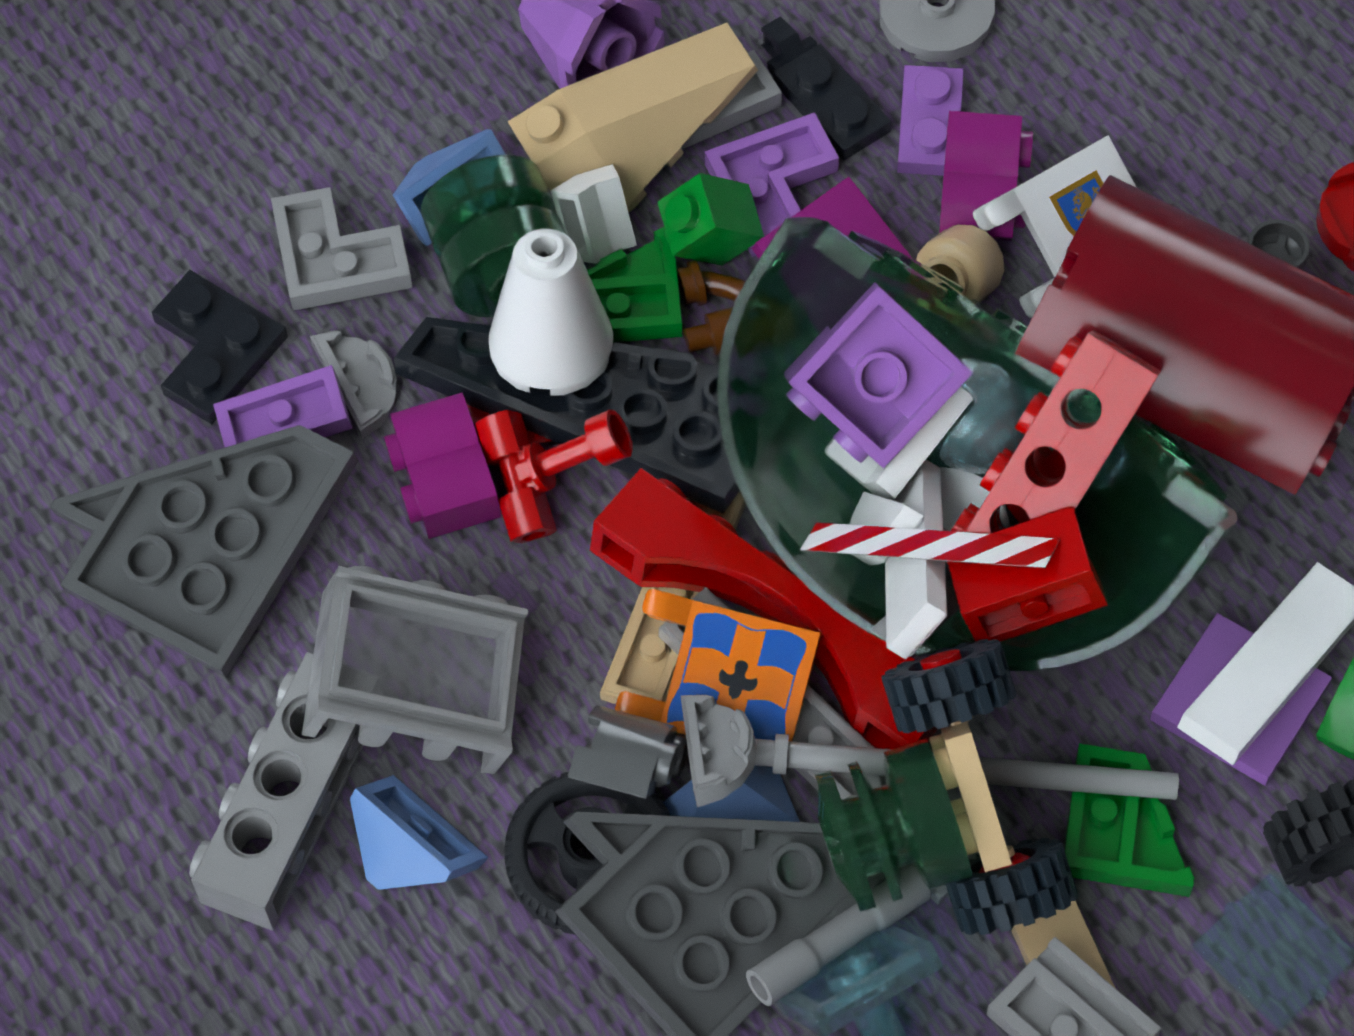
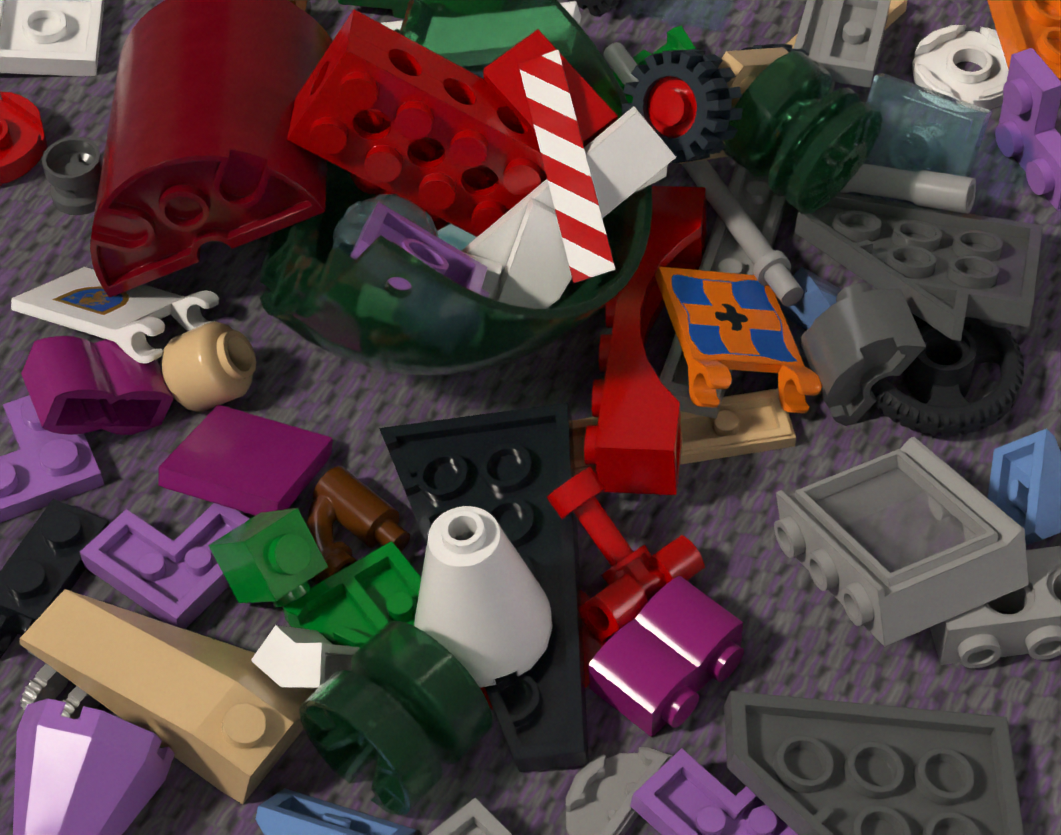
camera: 120 degrees left, 10 degrees down
(718, 747) = (808, 286): light grey tile -> none

